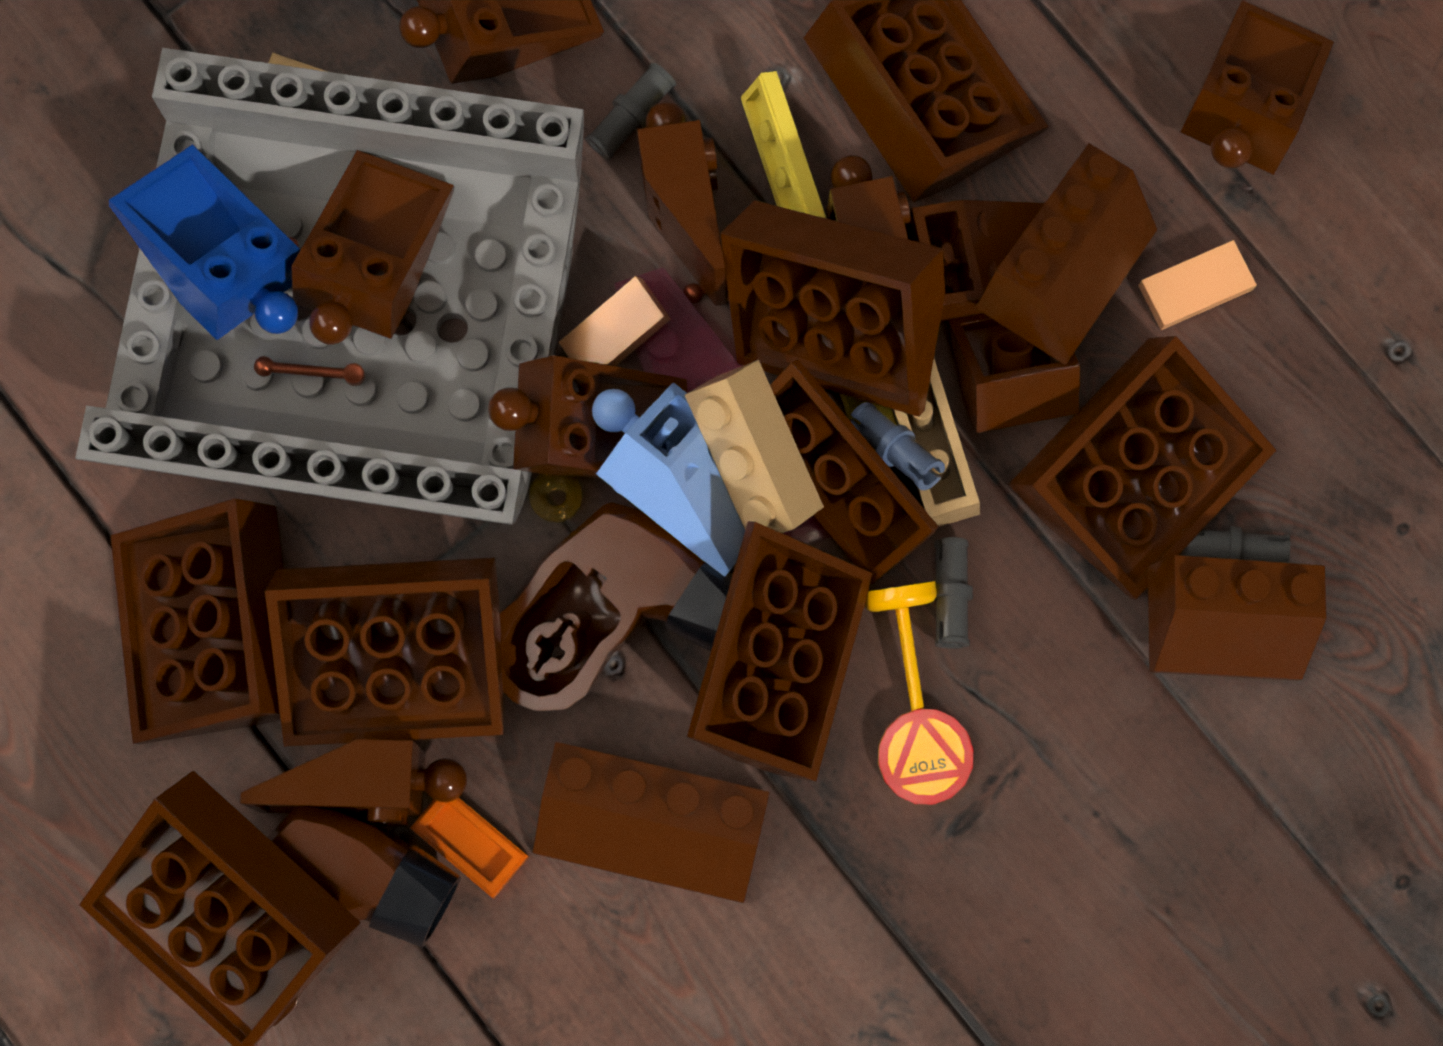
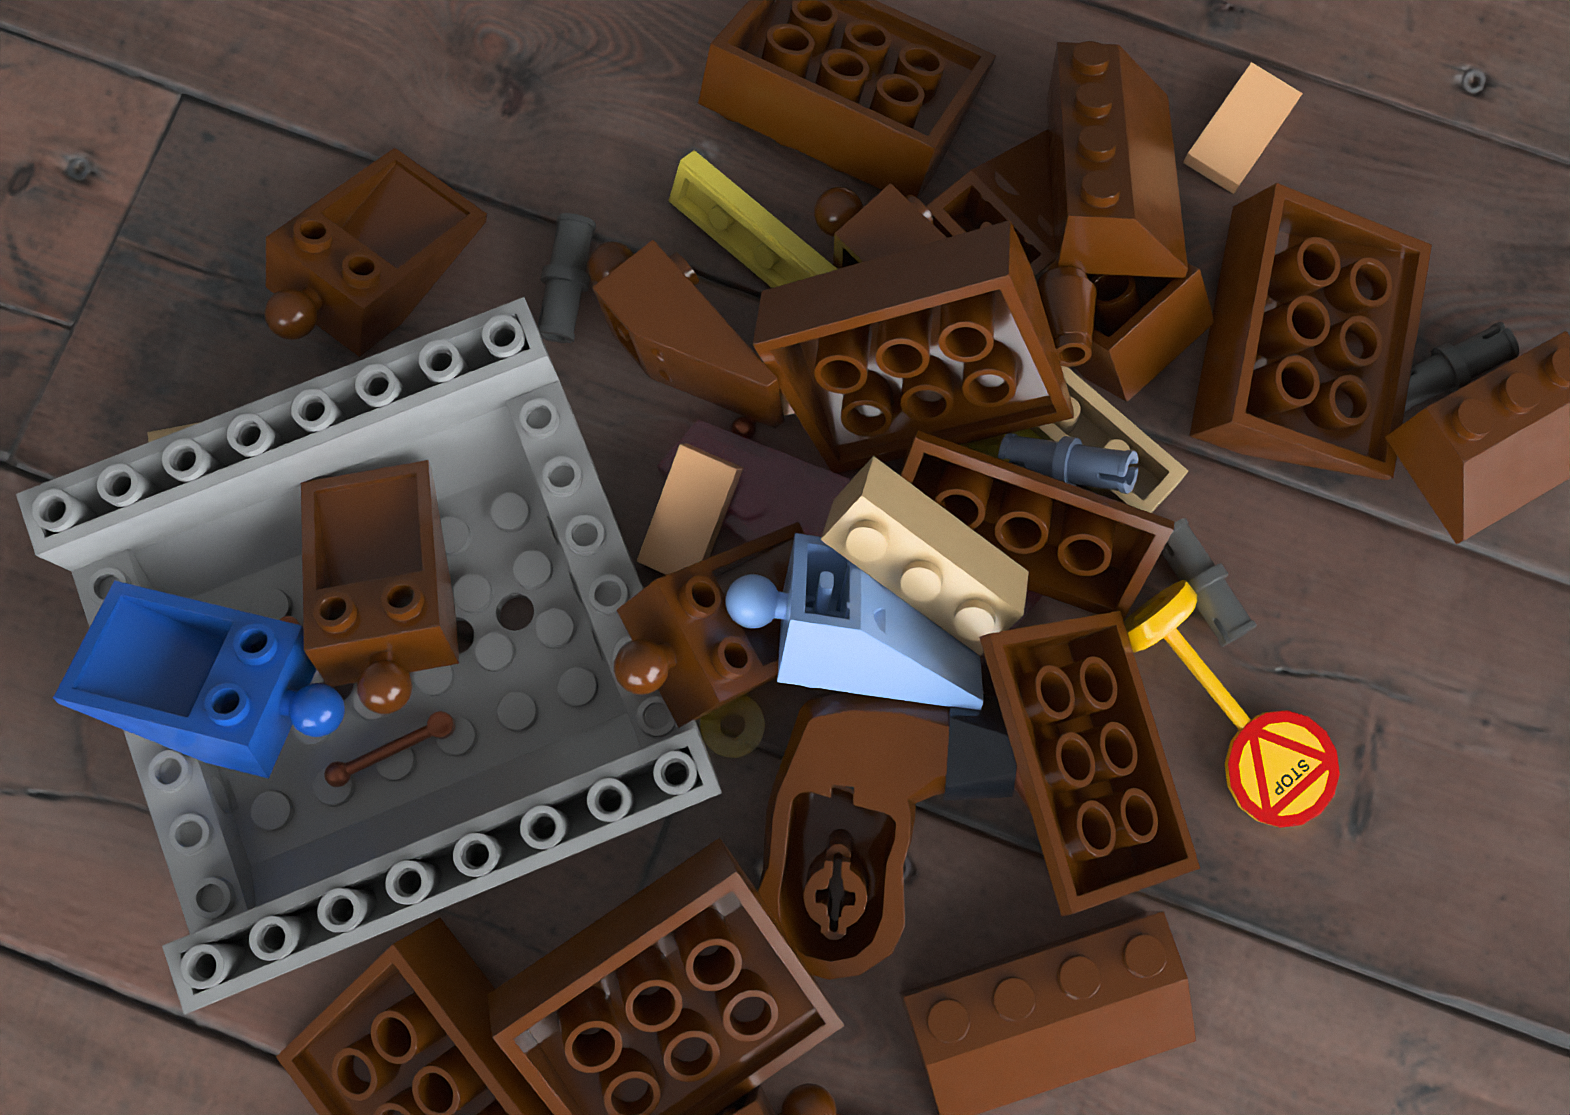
camera: 25 degrees left, 0 degrees up
(964, 340) = (1070, 312): none -> reddish brown cone

